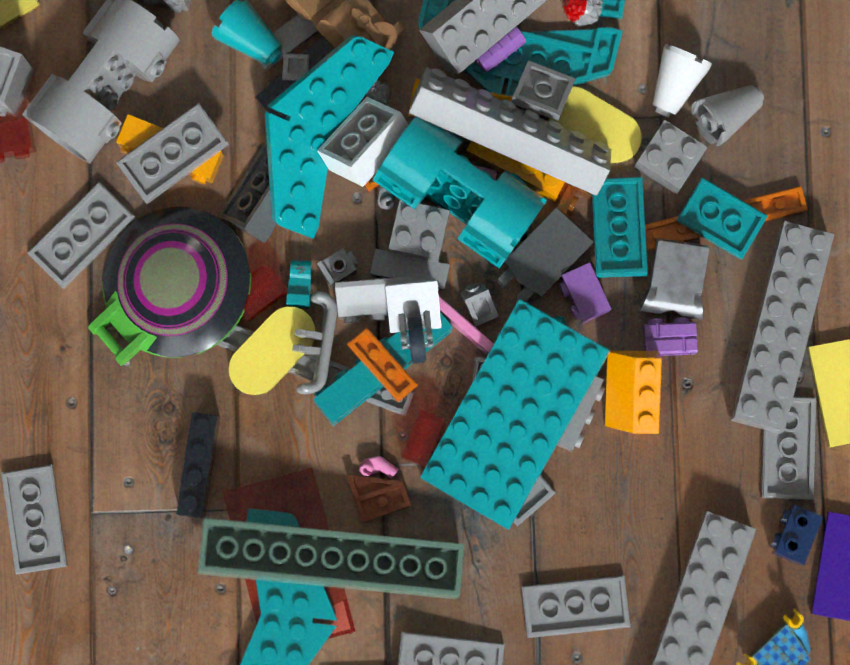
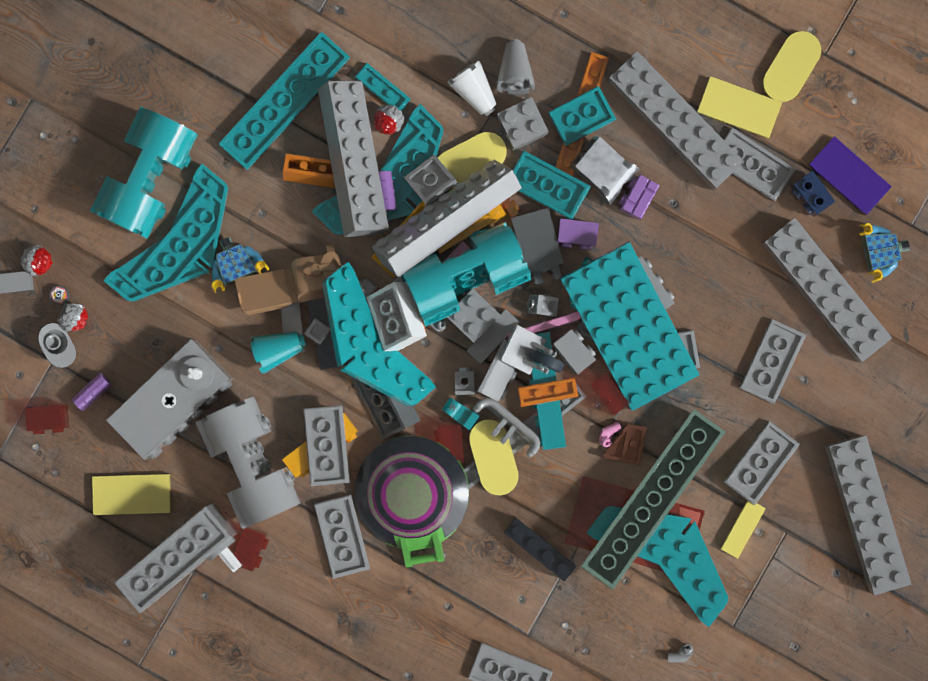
camera: 65 degrees left, 5 degrees up
(446, 368) = (574, 351): none -> light grey brick
(633, 391) = (660, 241): light orange slope -> none

